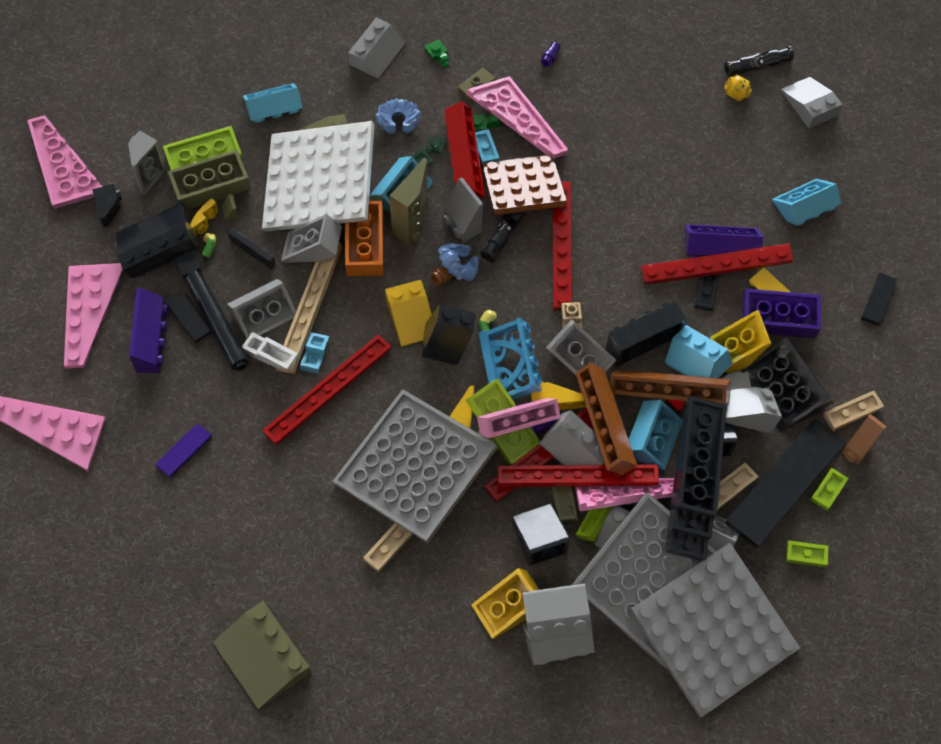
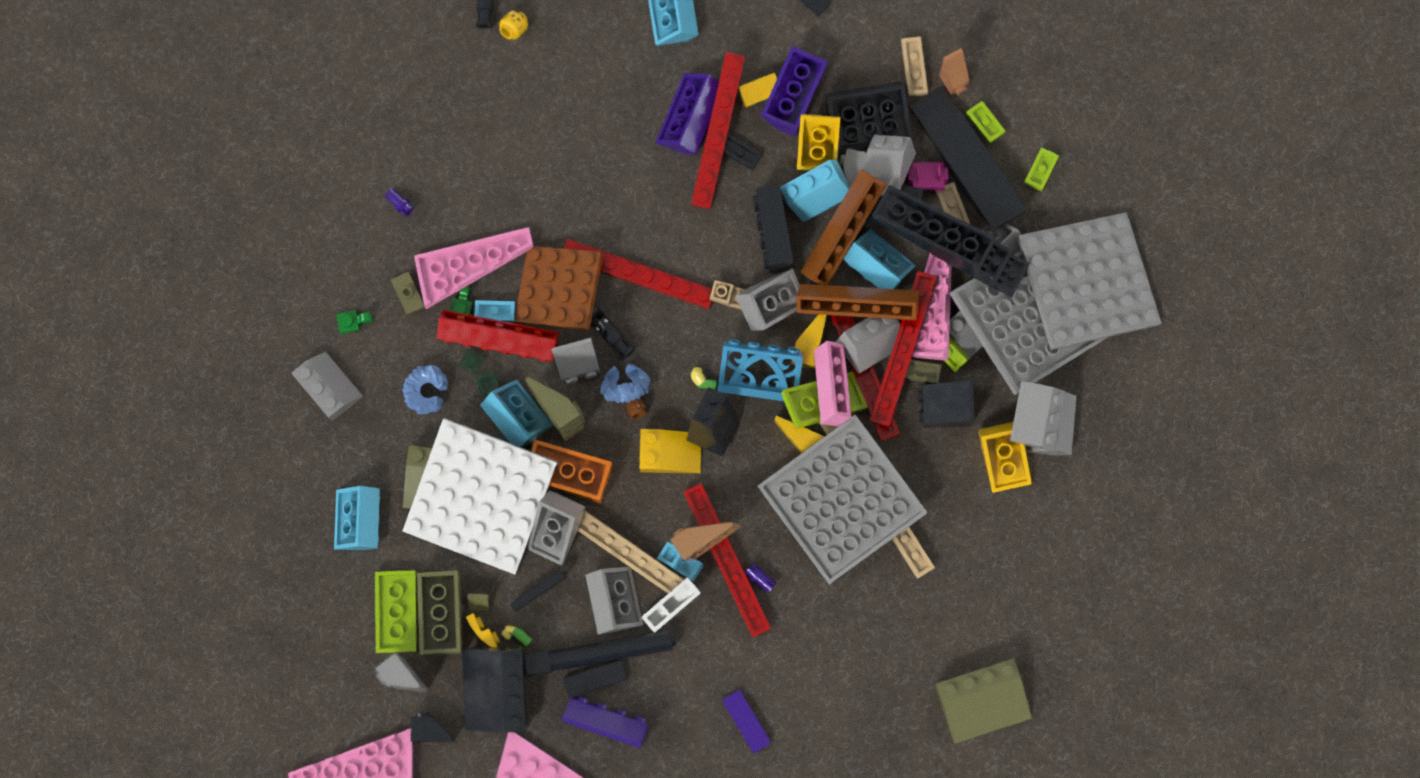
camera: 65 degrees left, 15 degrees up
(321, 420) = (760, 577): none -> dark purple pin
(334, 354) = (697, 540): none -> medium nougat slope
(754, 453) = (928, 175): none -> dark pink piece

